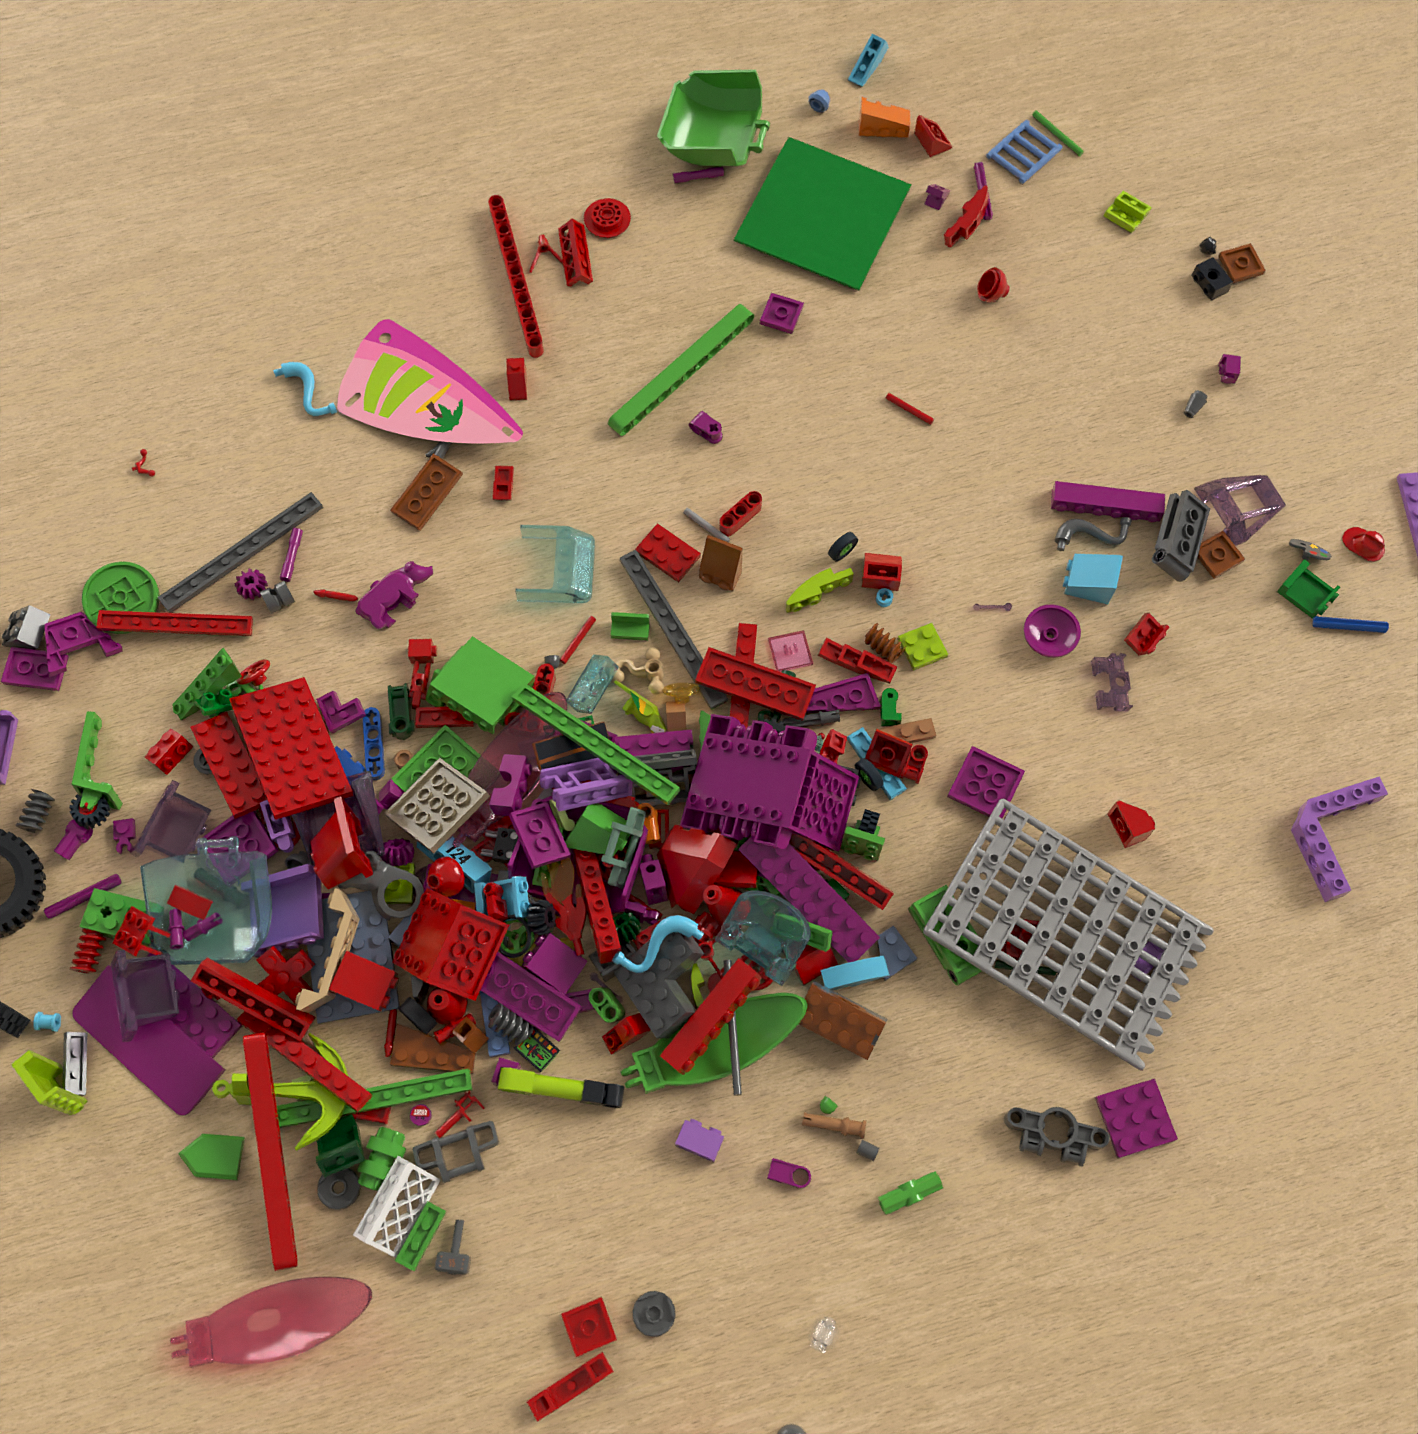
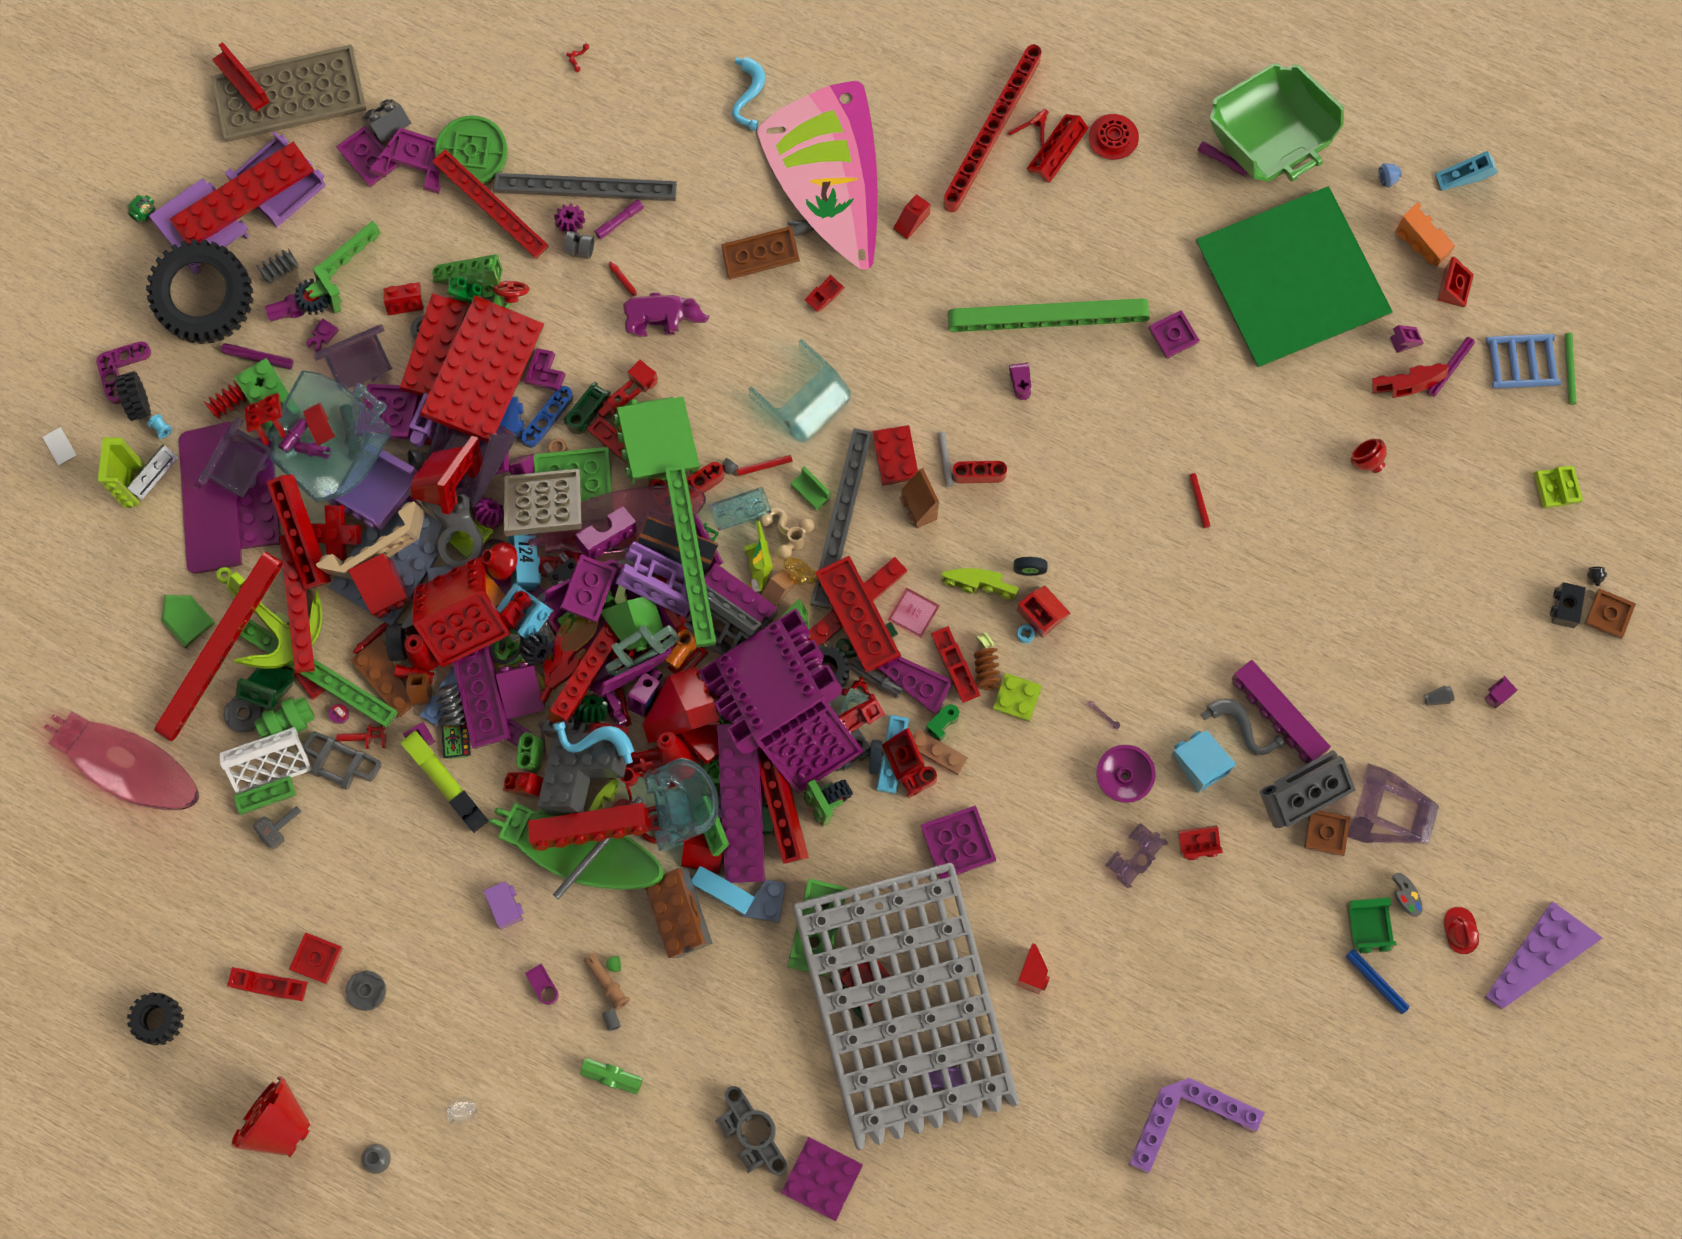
camera: 45 degrees right, 5 degrees up
(862, 626) = (985, 640): none -> yellowish green bush

